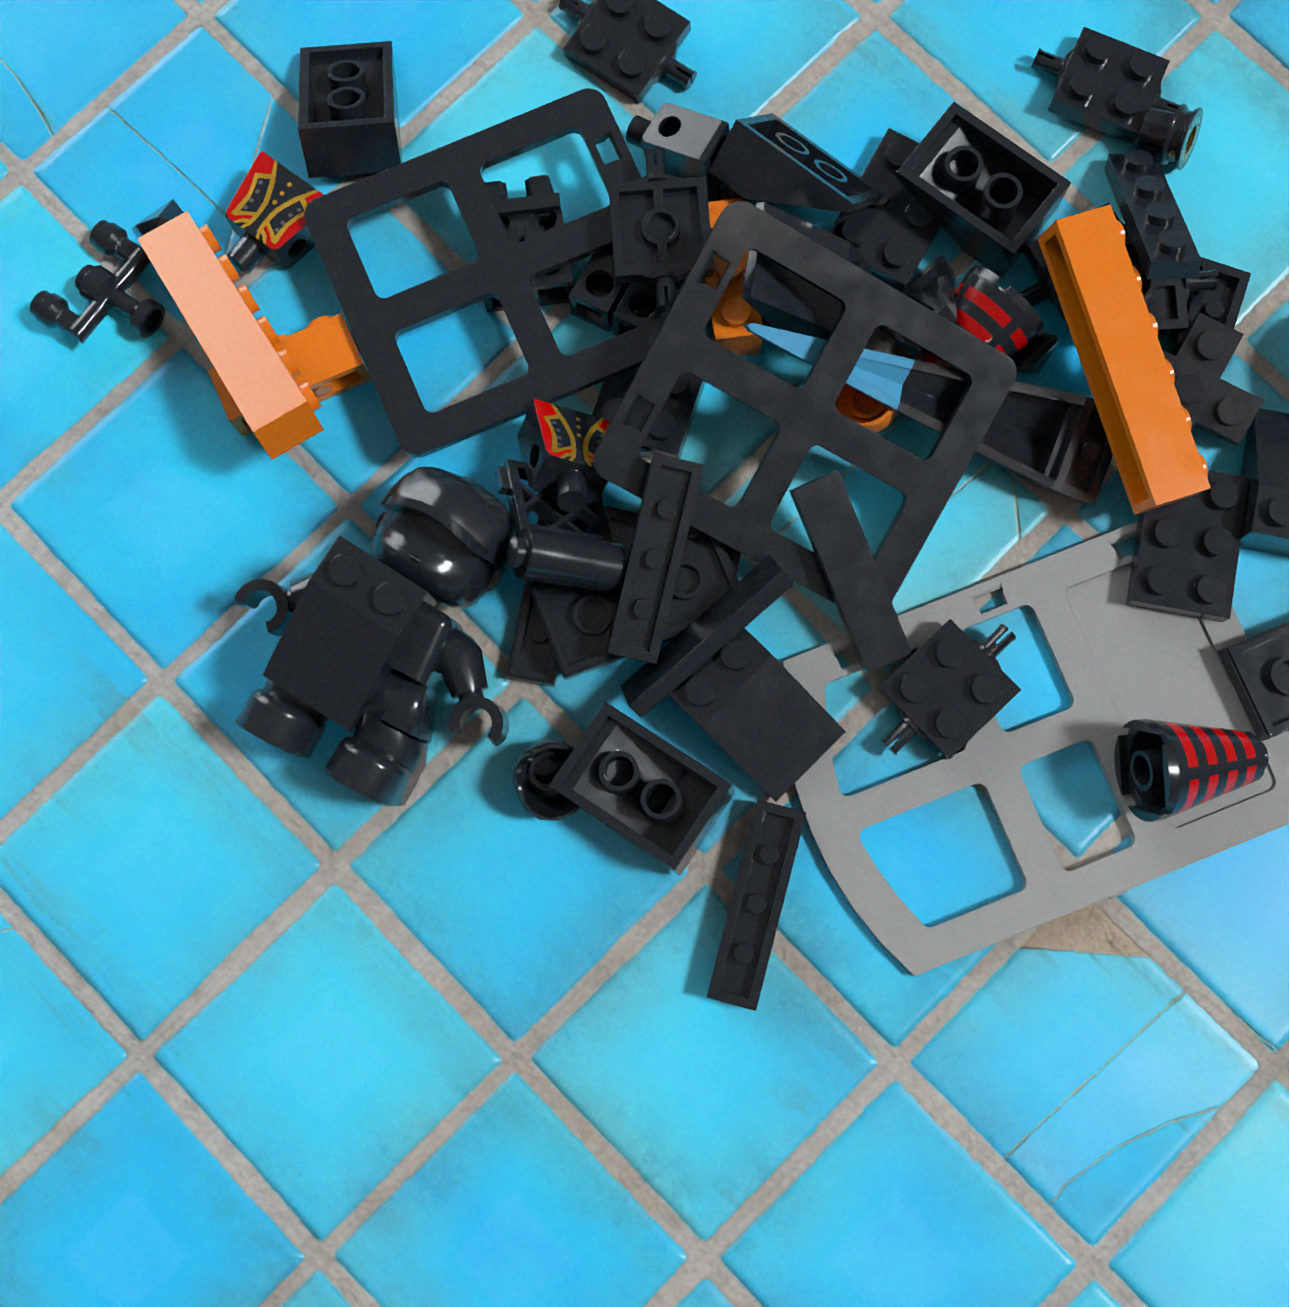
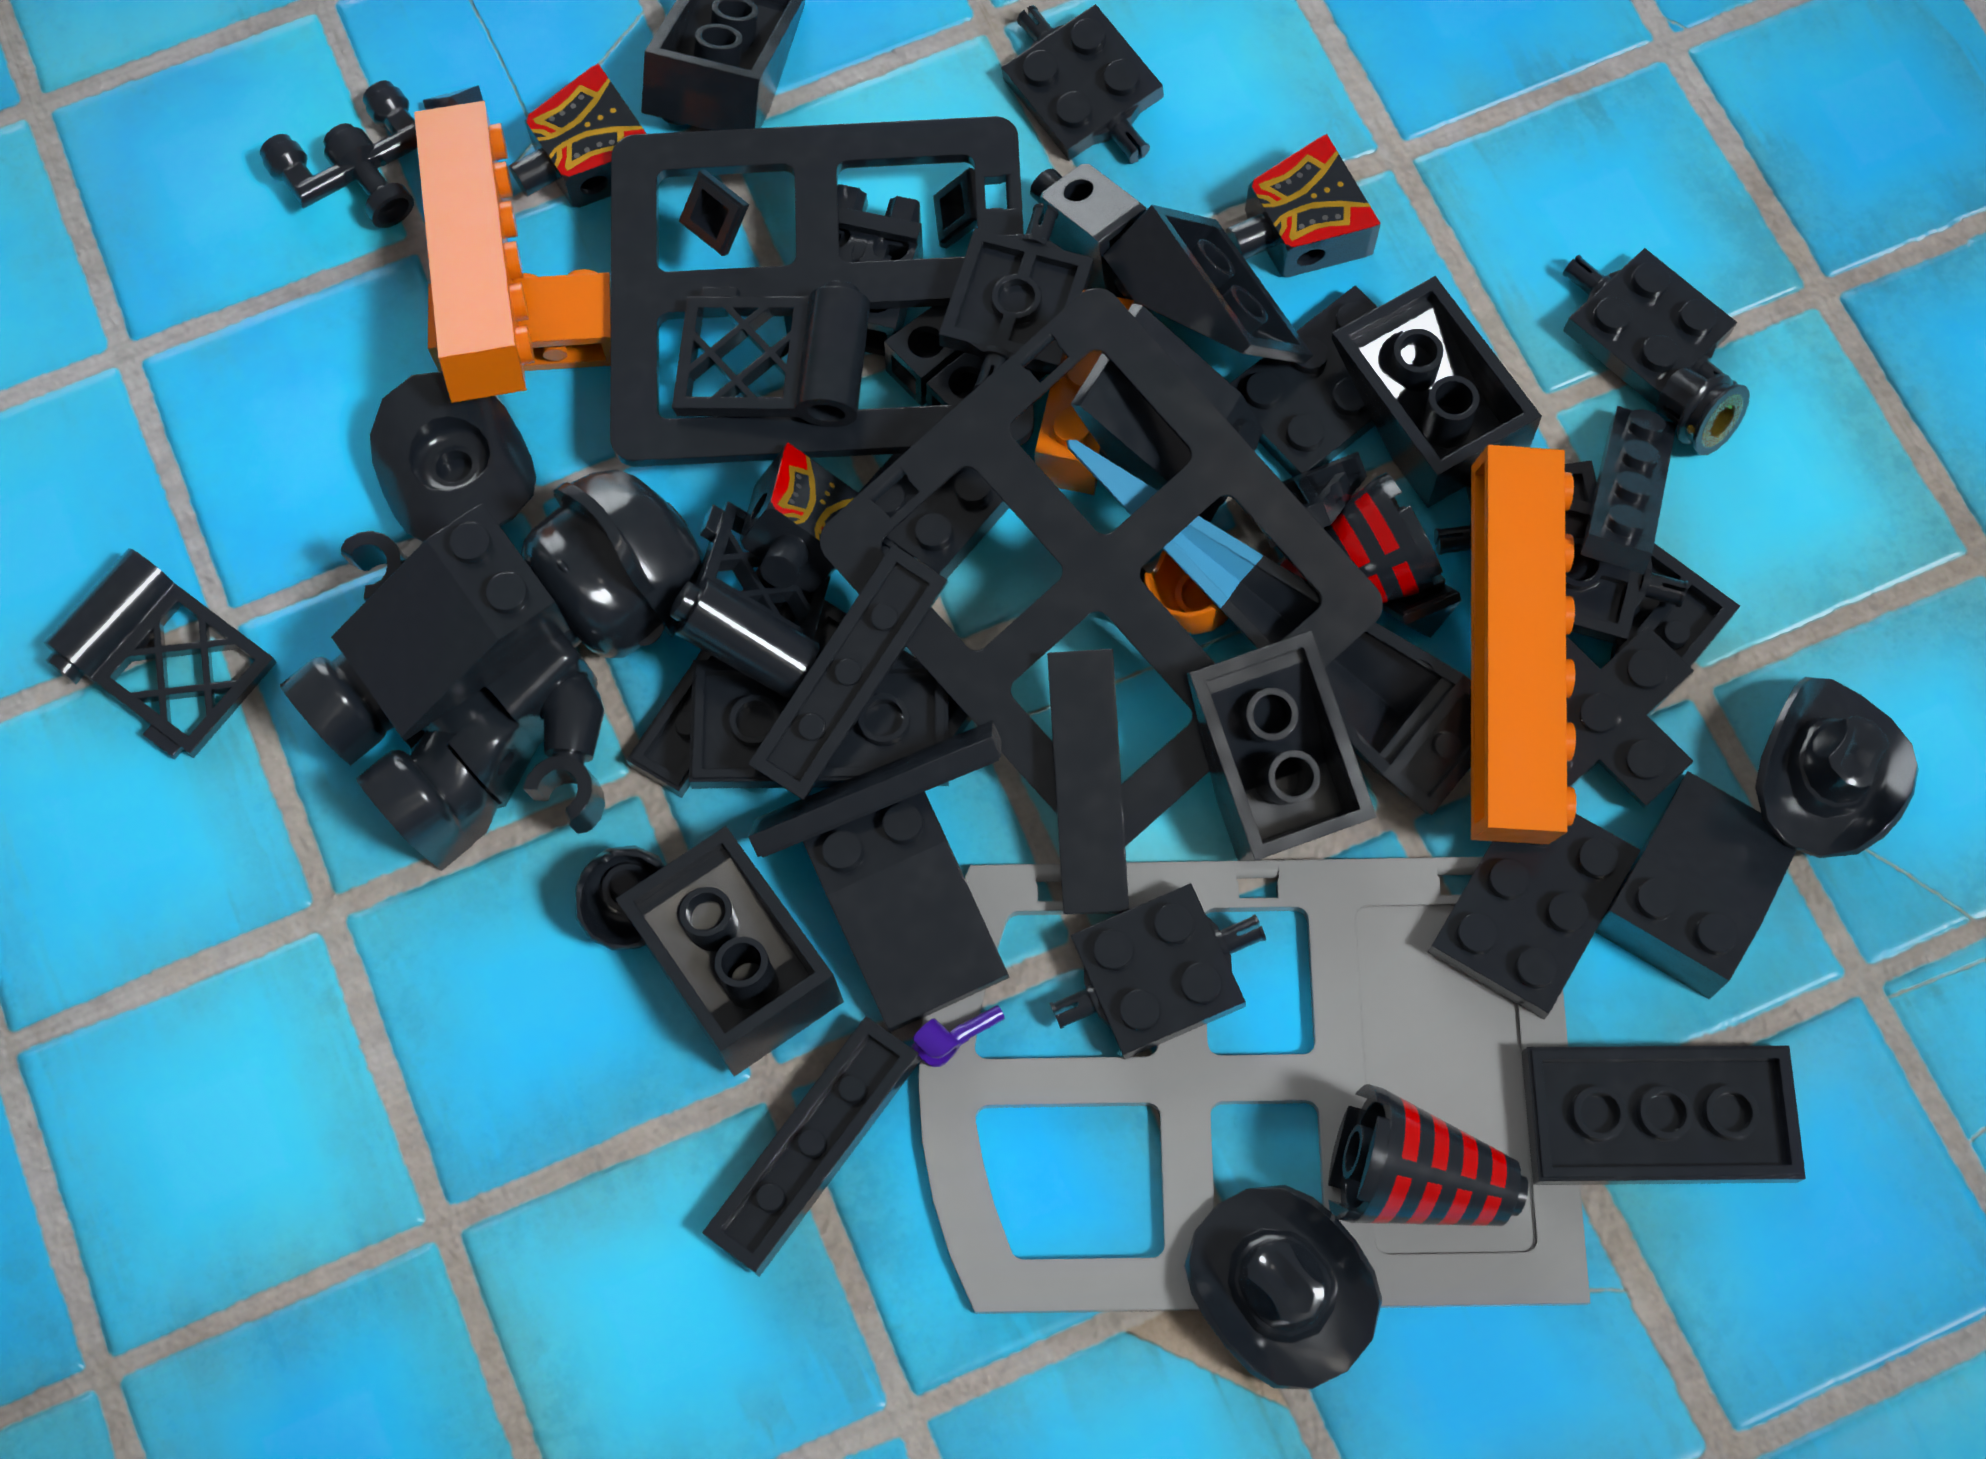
camera: 20 degrees right, 10 degrees down
(84, 720) = (117, 624): none -> black piece
(283, 506) = (447, 456): none -> black hat
(405, 240) = (713, 212): none -> black slope
(534, 321) = (821, 348): none -> black piece
(576, 170) = (956, 209): none -> black slope
(816, 799) = (939, 1045): none -> dark purple hand
(834, 84) = (1307, 213): none -> torso
(980, 502) = (1278, 749): none -> black slope
(1120, 877) = (1284, 1286): none -> black hat

